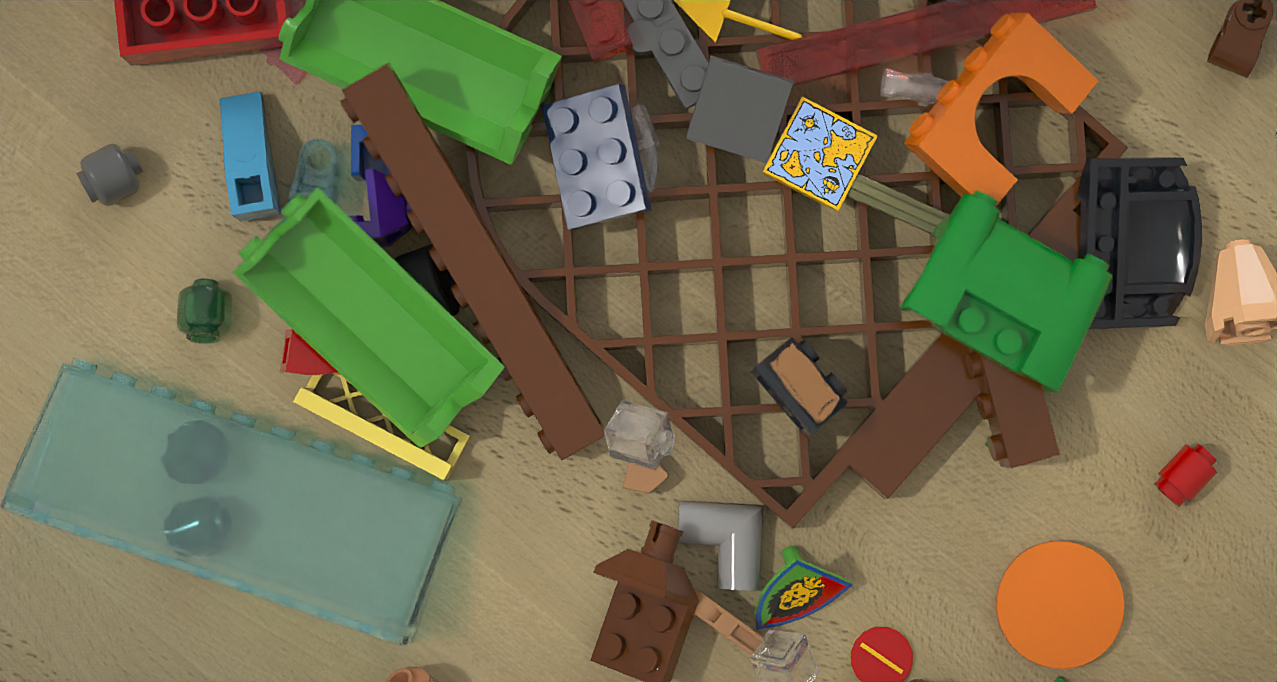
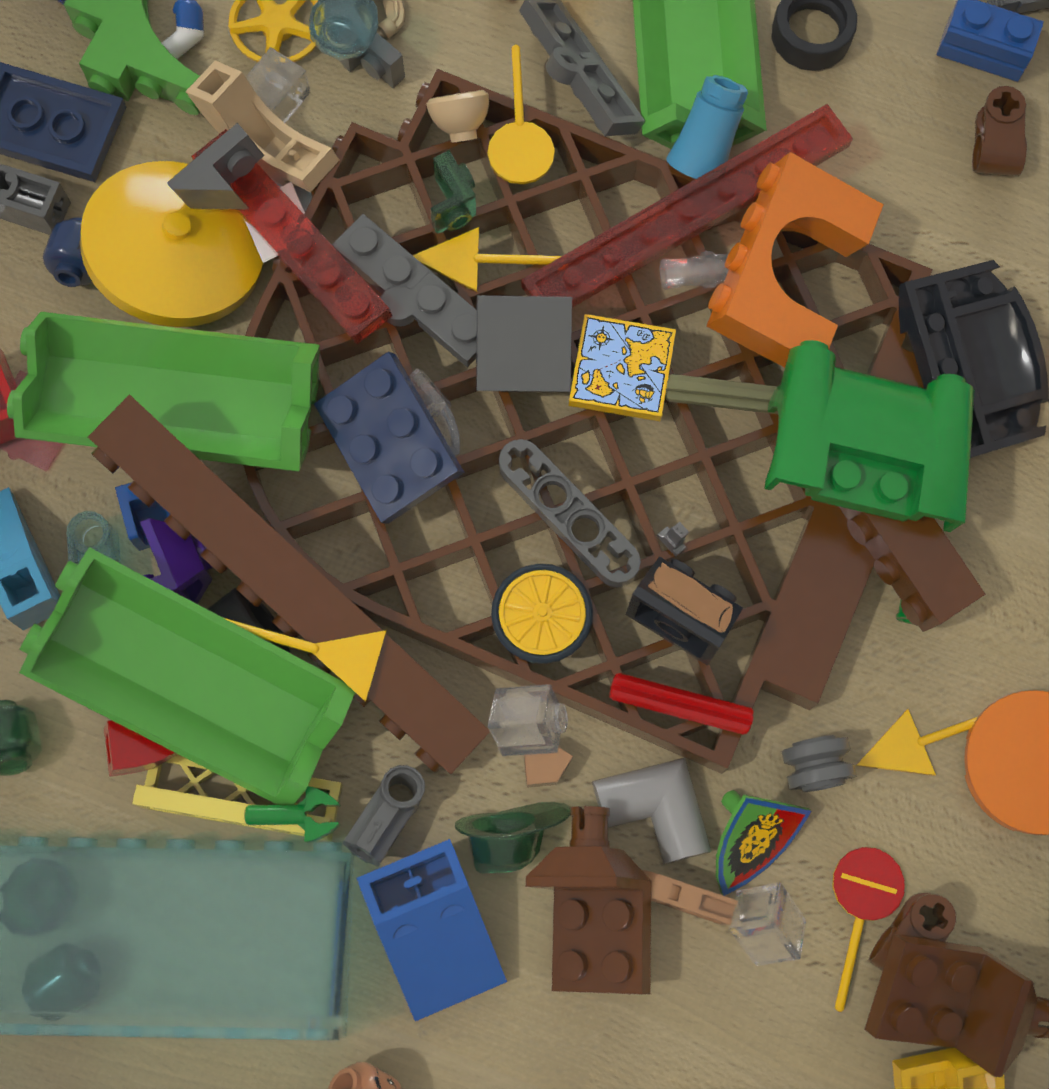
camera: 25 degrees left, 10 degrees down
(423, 454) = (296, 815): none -> green bar
(496, 478) = (384, 816): none -> dark grey piece
(506, 340) = (349, 658): none -> yellow piece
(507, 581) = (431, 930): none -> blue slope
(596, 525) = (510, 837): none -> clear green piece
(680, 349) = (542, 613): none -> yellow wheel
(735, 268) = (573, 509): none -> dark grey beam
(771, 463) = (681, 703): none -> red axle
(813, 320) = (674, 538): none -> flat silver piece
(872, 548) = (818, 763): none -> dark grey wheel
(952, 556) = (904, 749): none -> yellow piece

